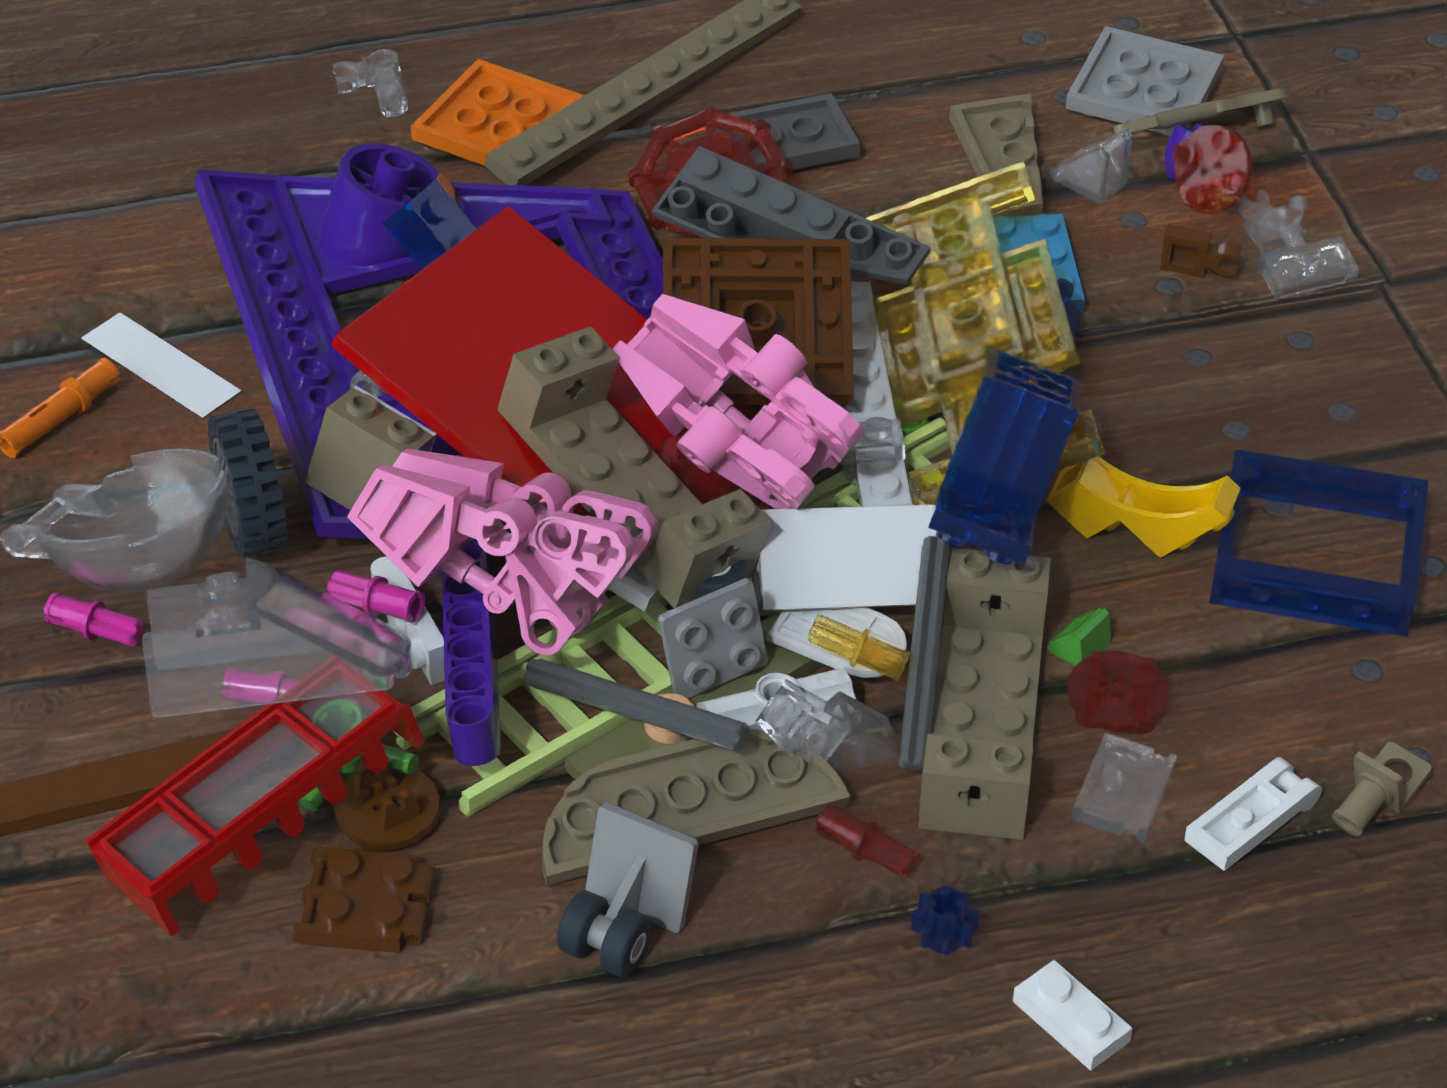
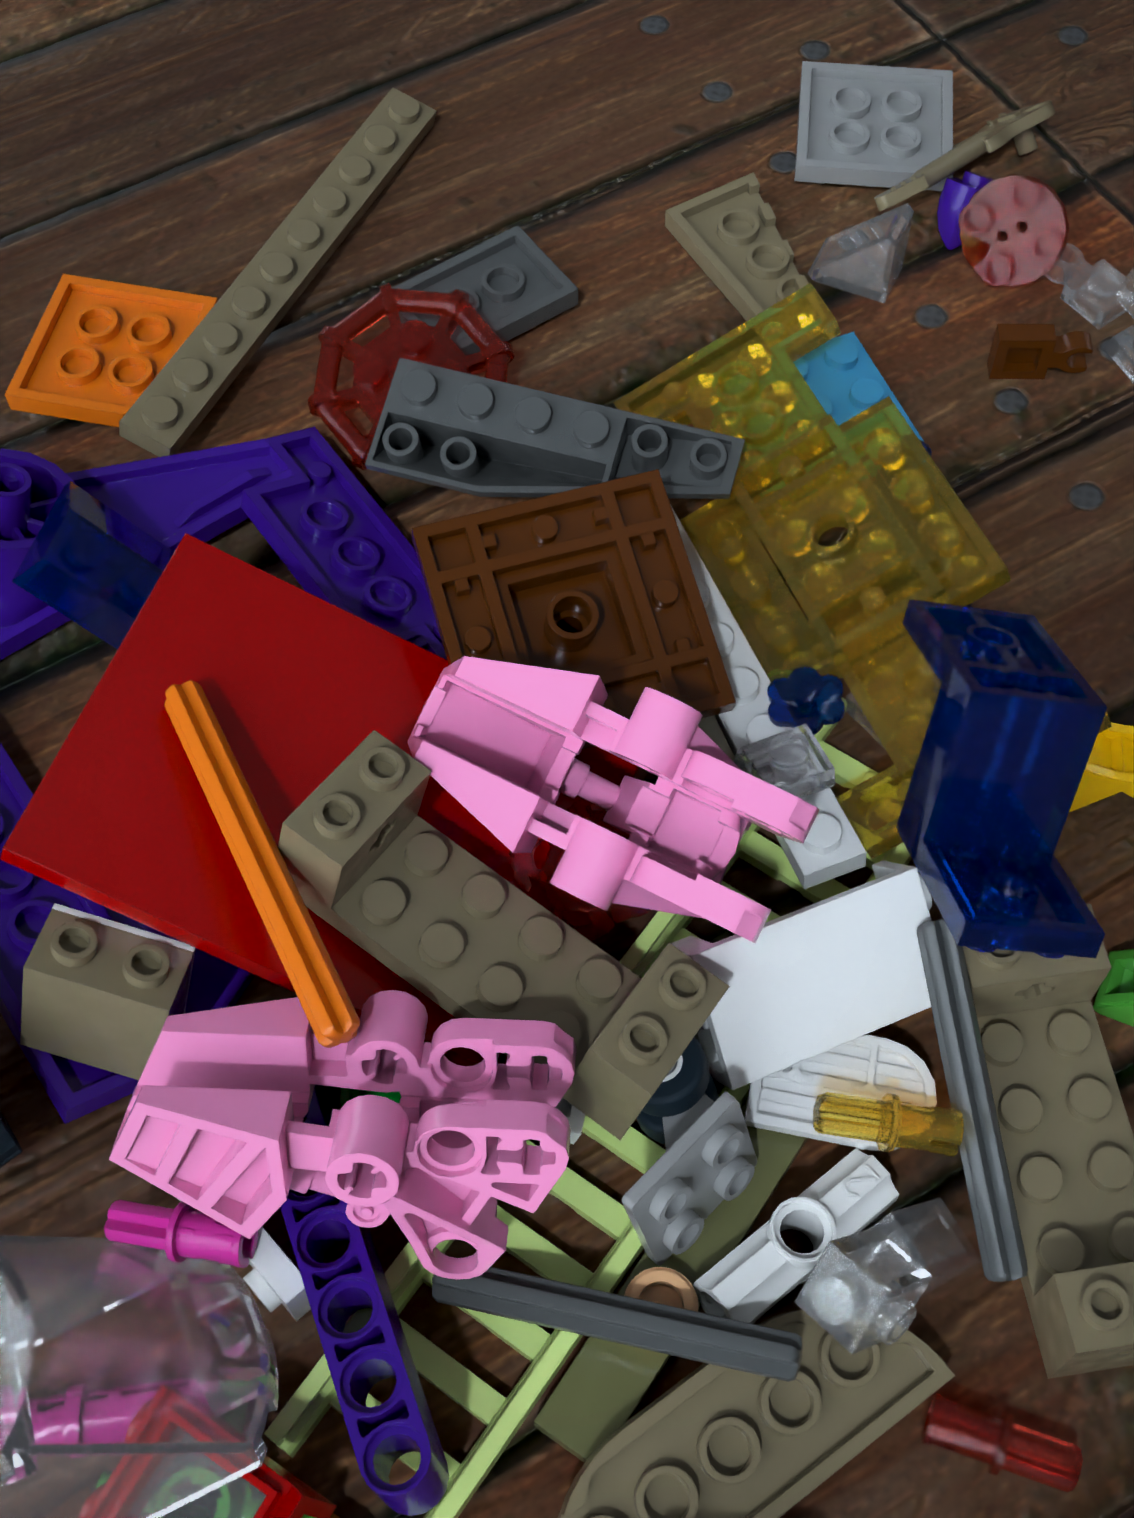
camera: 15 degrees left, 15 degrees up
(492, 383) = (262, 867): none -> orange axle
(912, 412) = (806, 699): none -> clear blue plant

